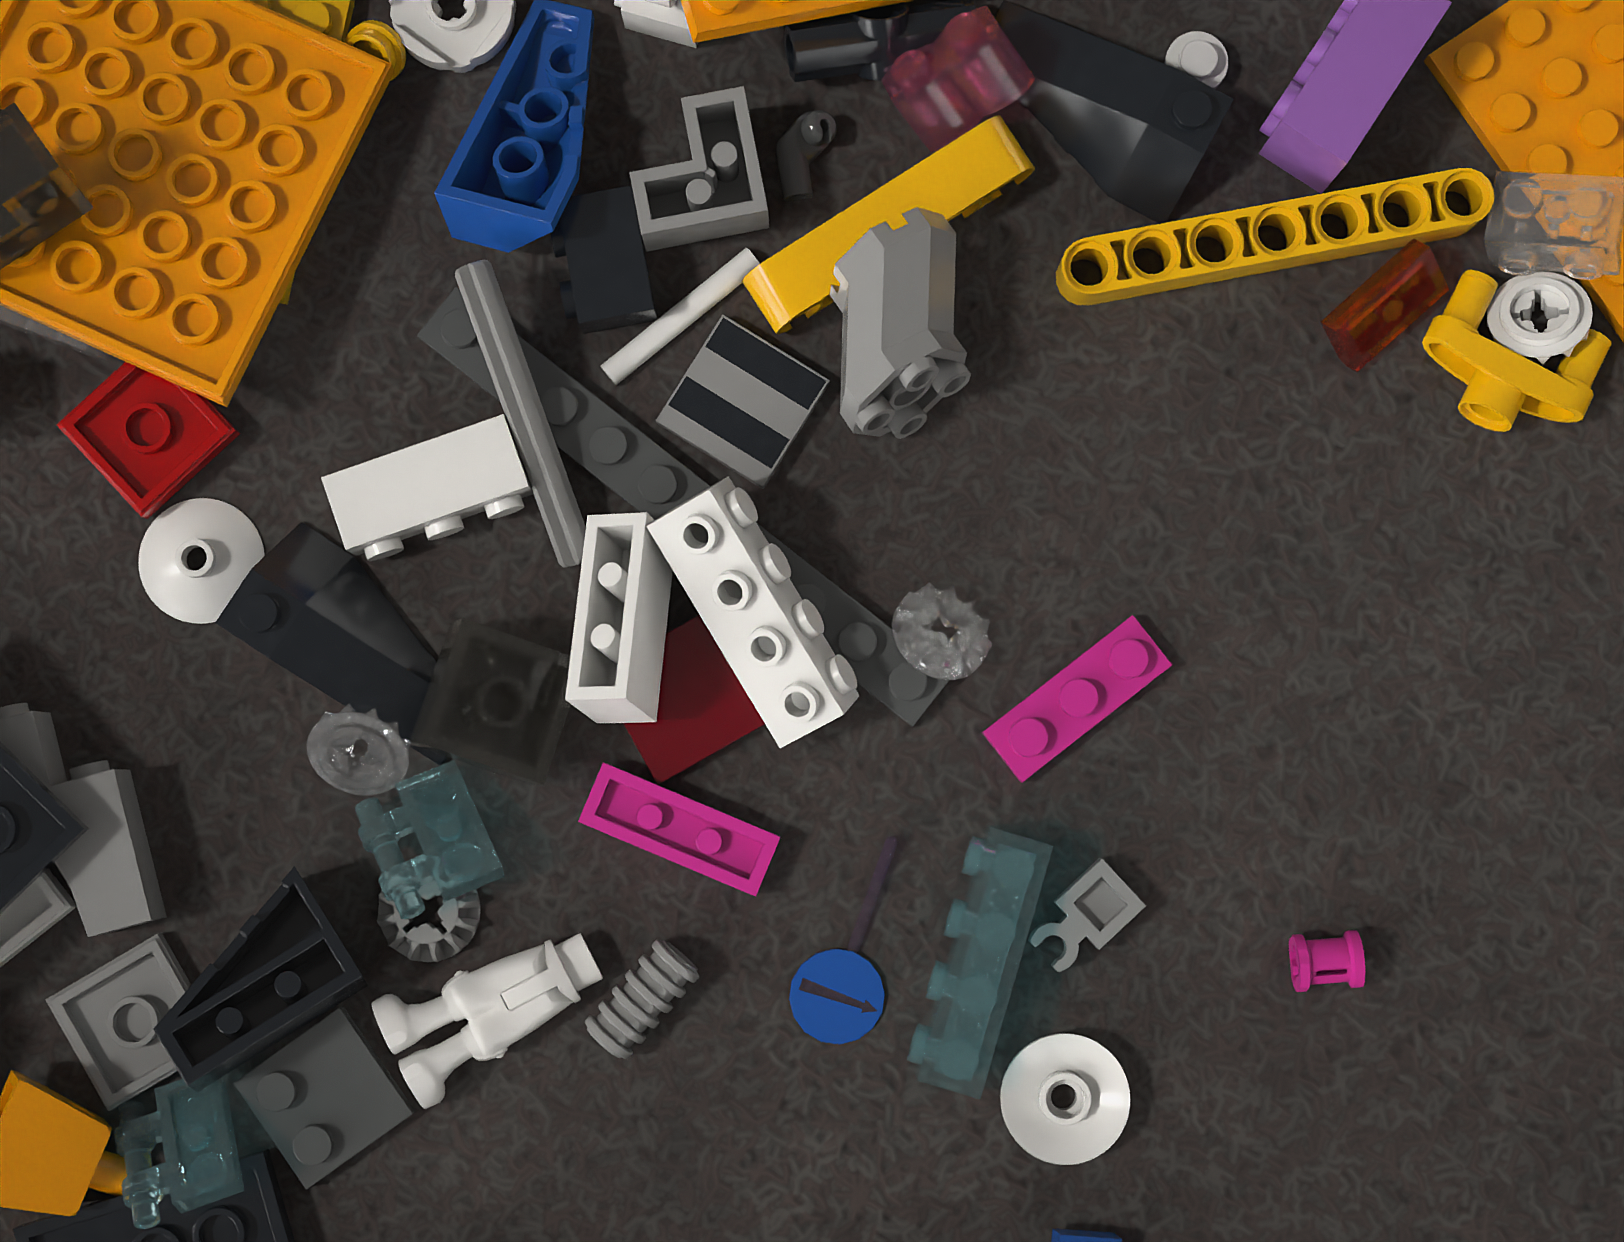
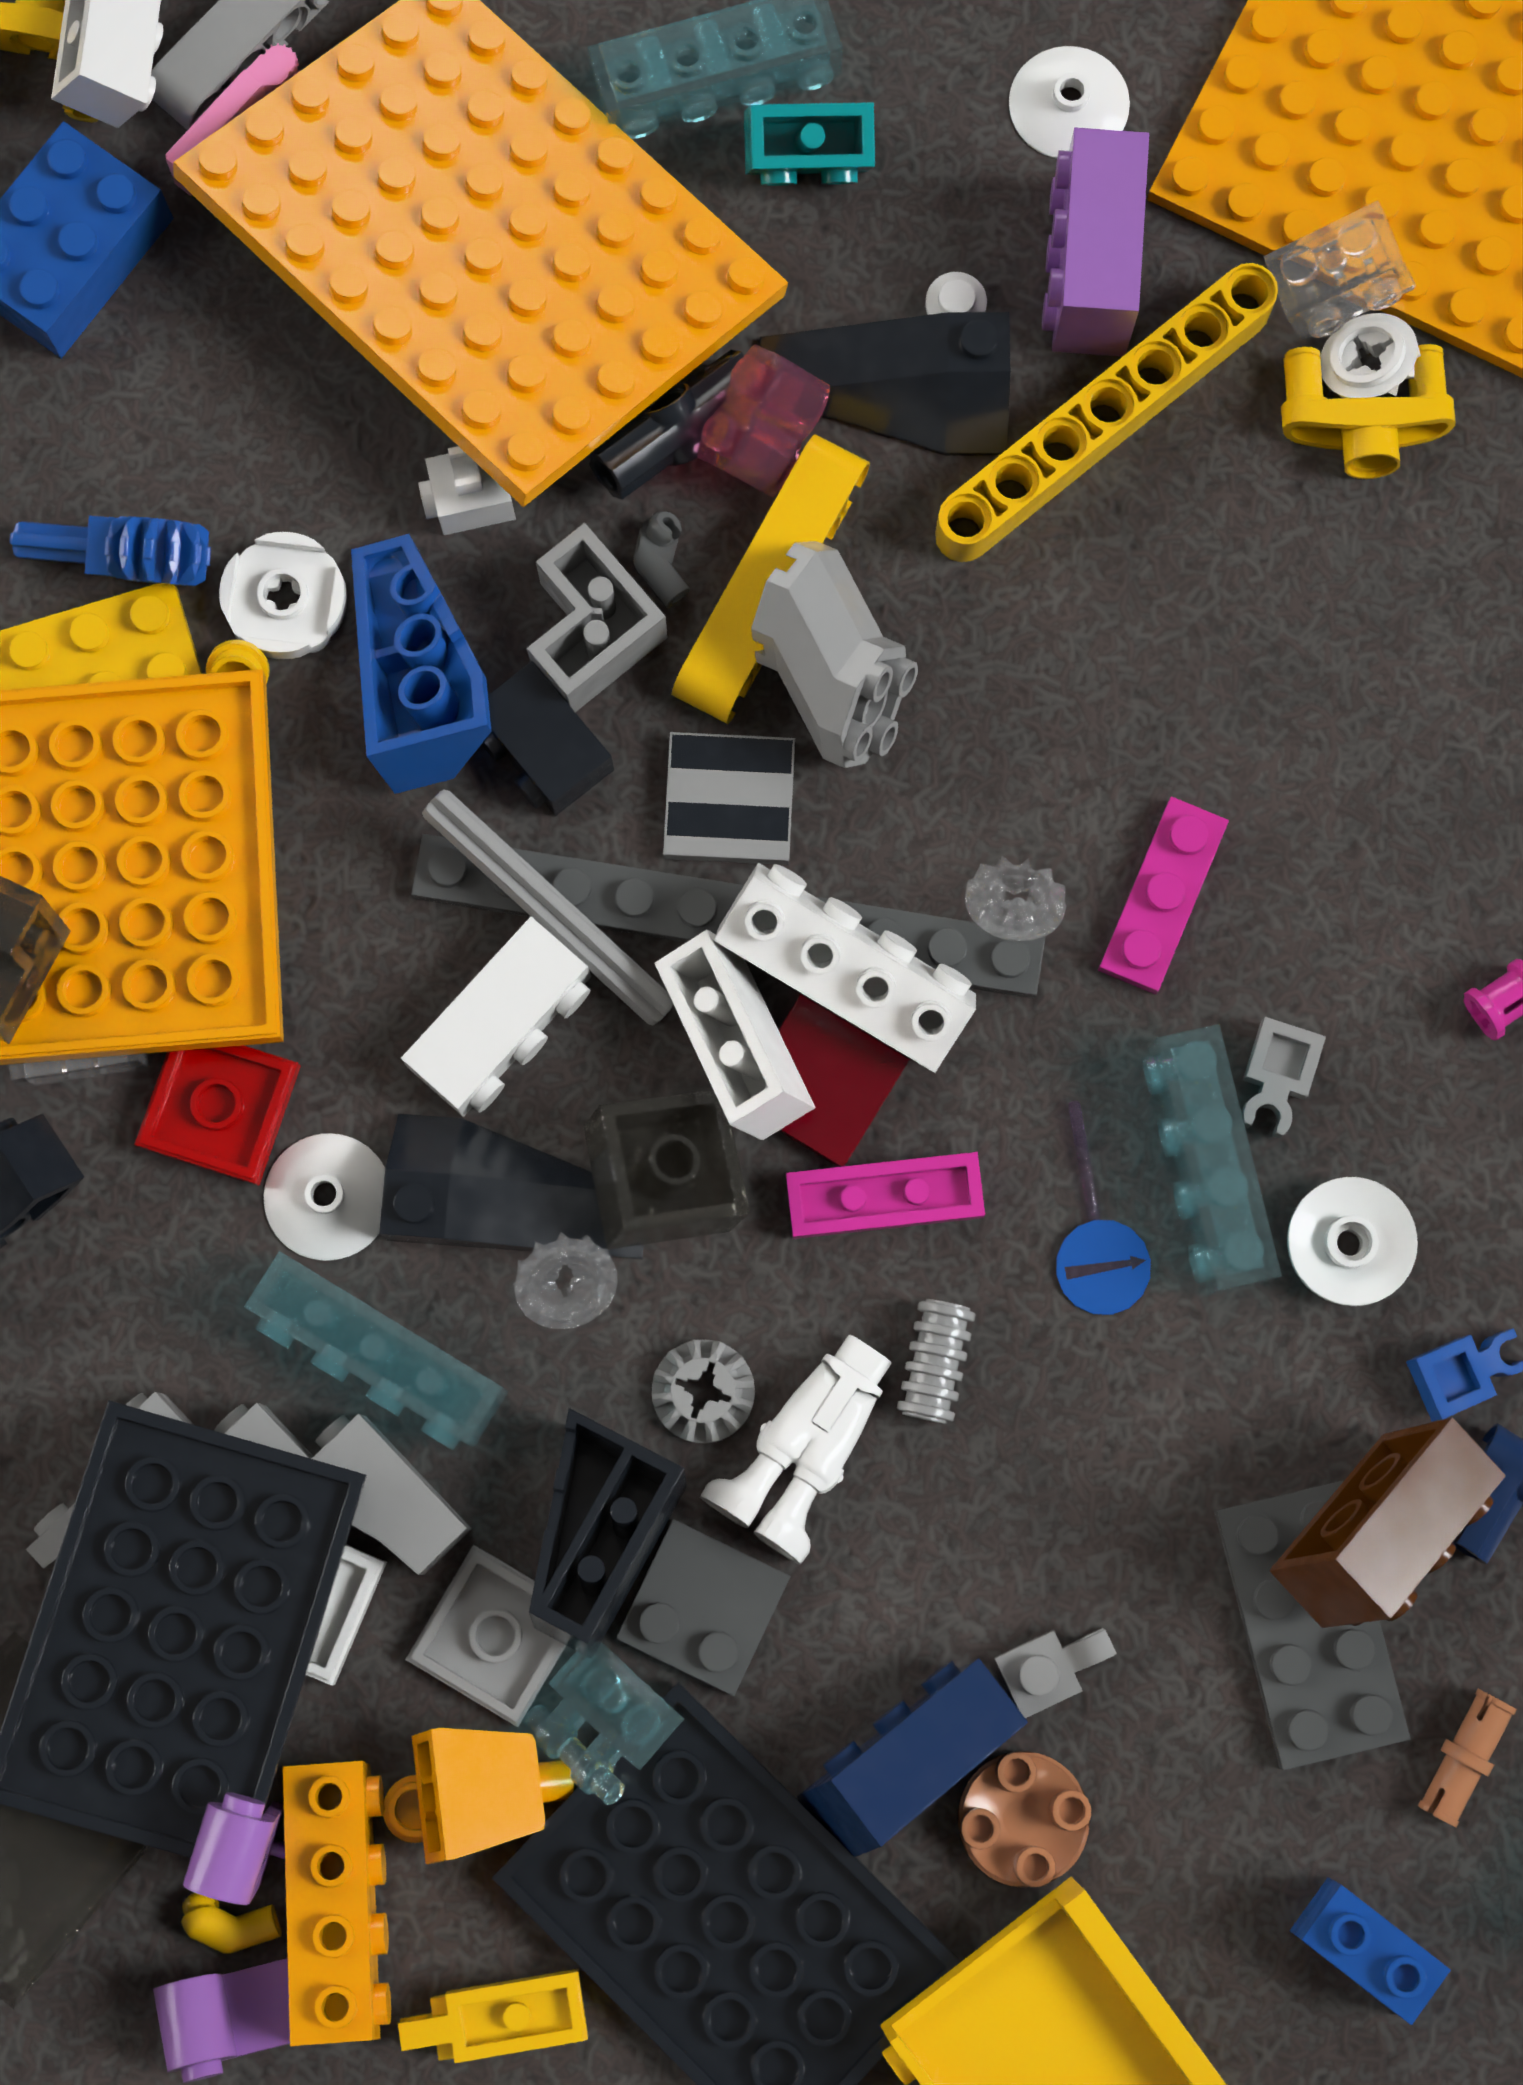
camera: 30 degrees left, 5 degrees down
(160, 720) = (377, 1350): none -> clear light blue brick
(449, 834) = (680, 1305): clear light blue plate -> none
(679, 317) = (633, 755): white bar -> none
(1385, 305) = (1234, 418): clear red plate -> none

